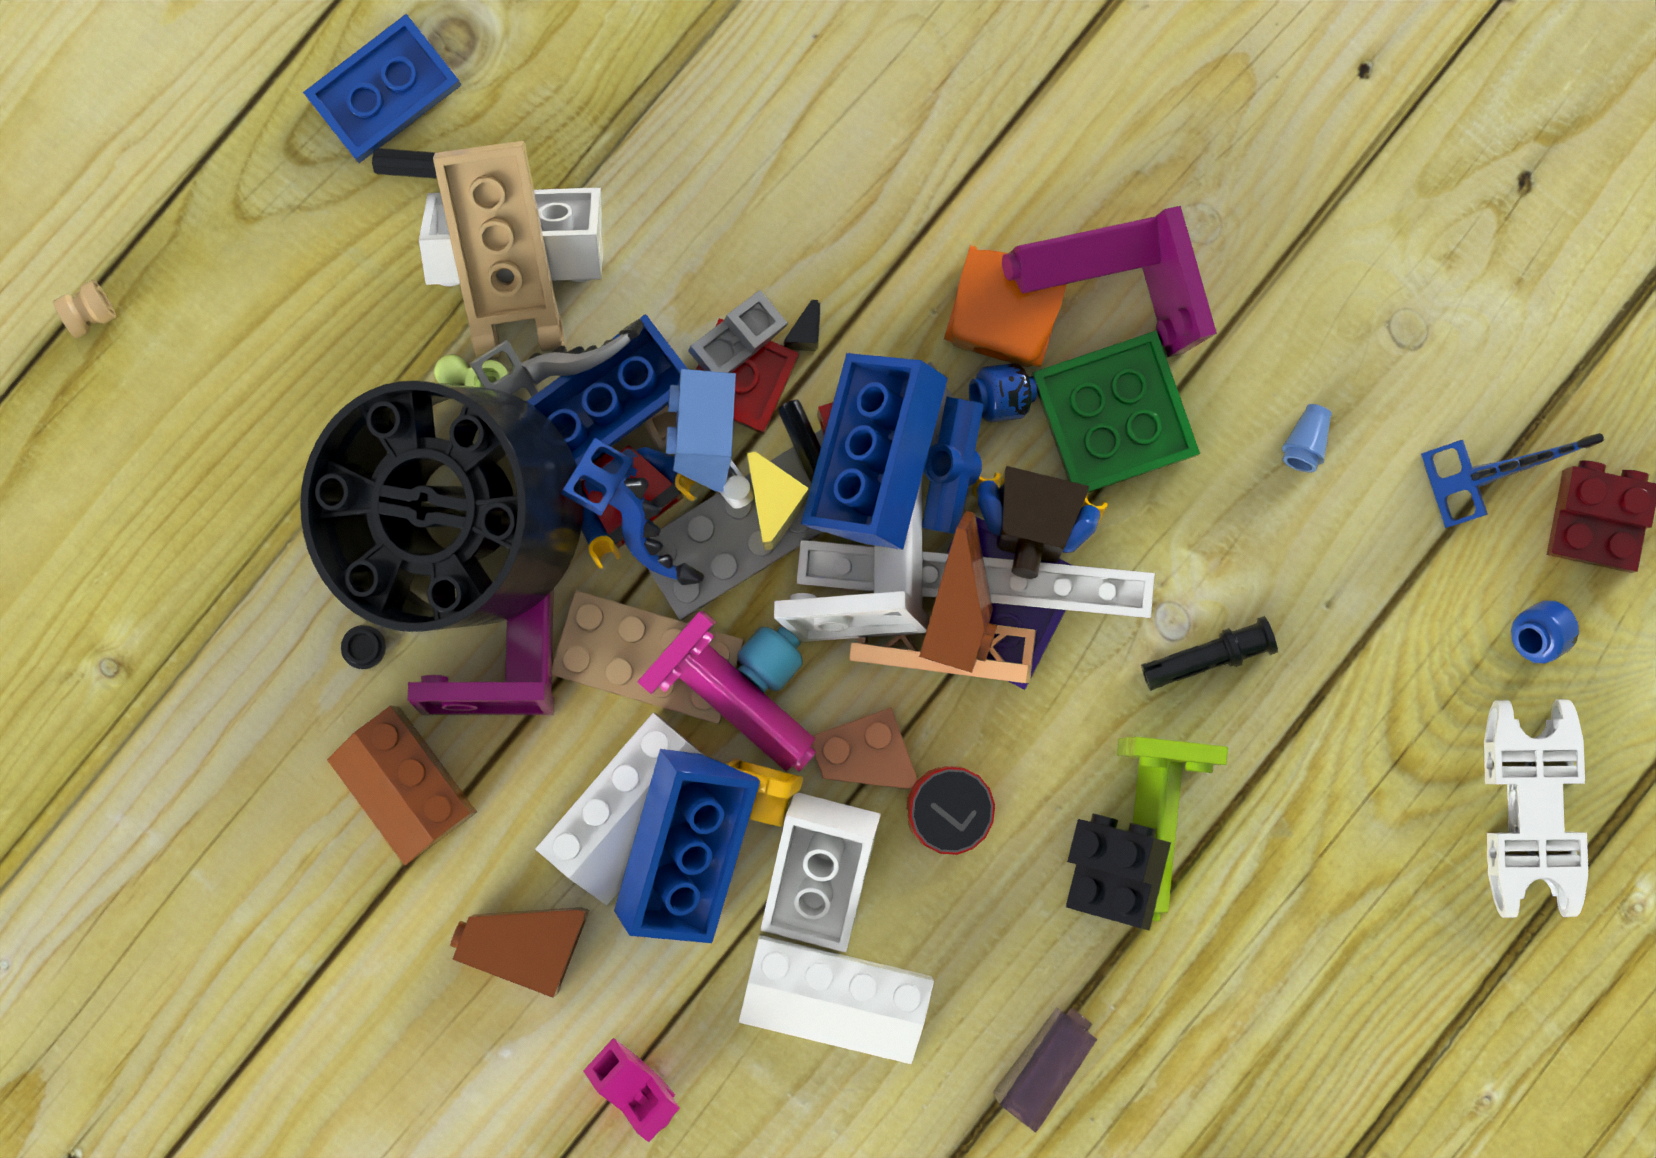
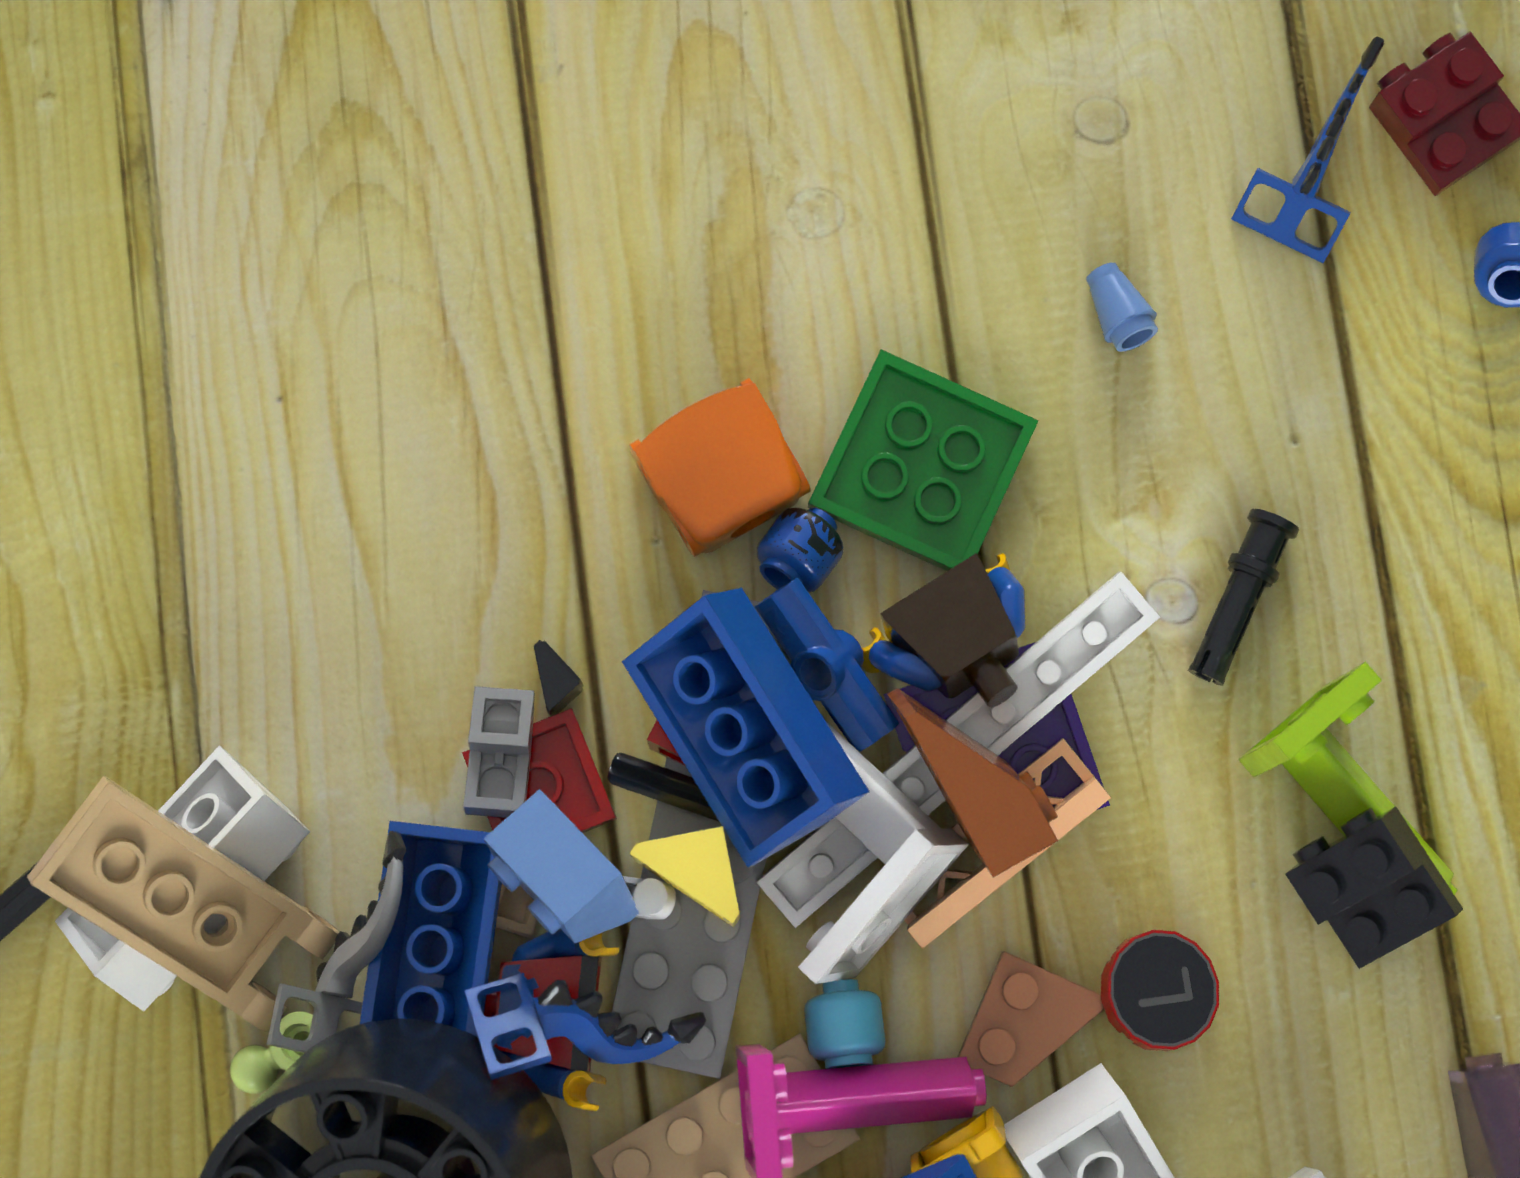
camera: 45 degrees left, 5 degrees down
(1154, 244) = (803, 272): magenta piece -> none

